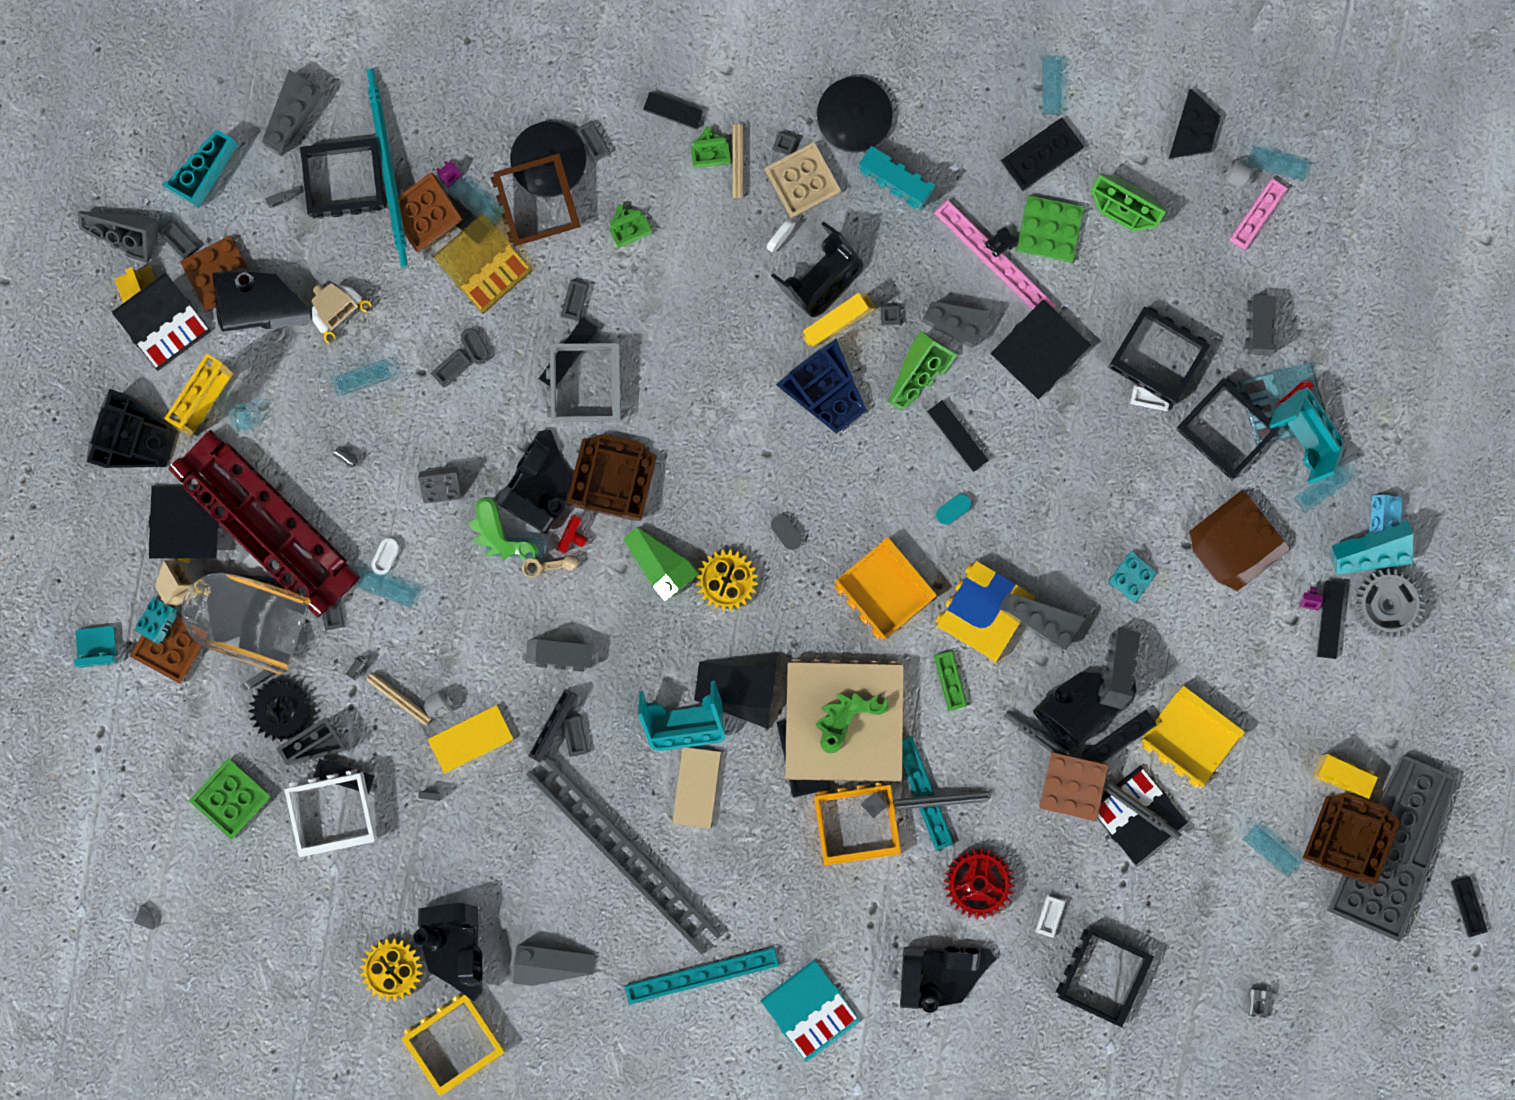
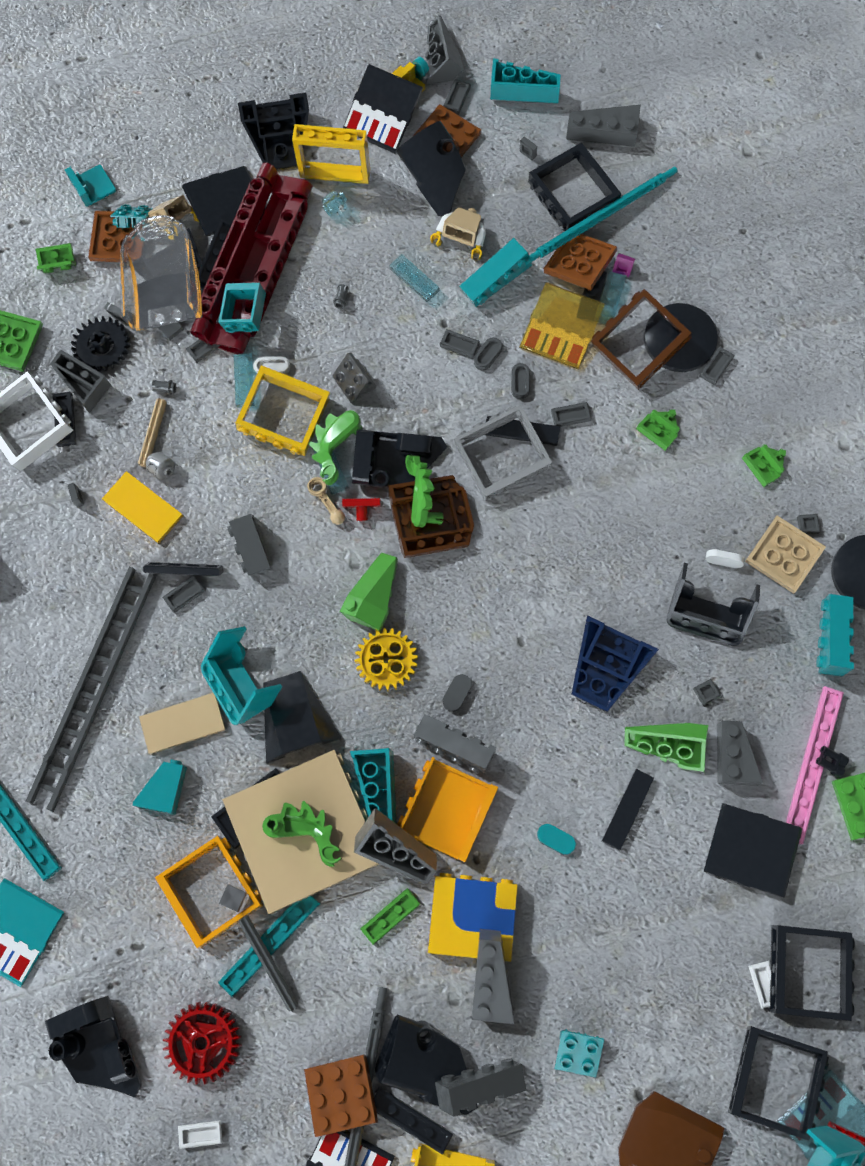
camera: 70 degrees right, 10 degrees down
(135, 261) = (421, 68): none -> teal tile
(163, 716) = (55, 257): none -> bright green bracket
(239, 556) = (213, 251): none -> black tile
(301, 548) = (242, 291): none -> teal window
(399, 300) = (496, 273): none -> teal wedge
(417, 545) = (293, 385): none -> yellow window
(517, 330) = (520, 381): none -> dark grey tile
(601, 479) = (421, 498): none -> bright green animal
(672, 110) = (782, 417): black tile -> none
(737, 161) = (769, 491): tan axle -> none
(749, 828) = (163, 788): none -> teal slope
(831, 556) = (455, 744): none -> dark grey wedge
(832, 638) = (376, 780): none -> teal wedge
(839, 319) = (678, 645): yellow slope -> none
(898, 648) = (394, 848): none -> dark grey wedge

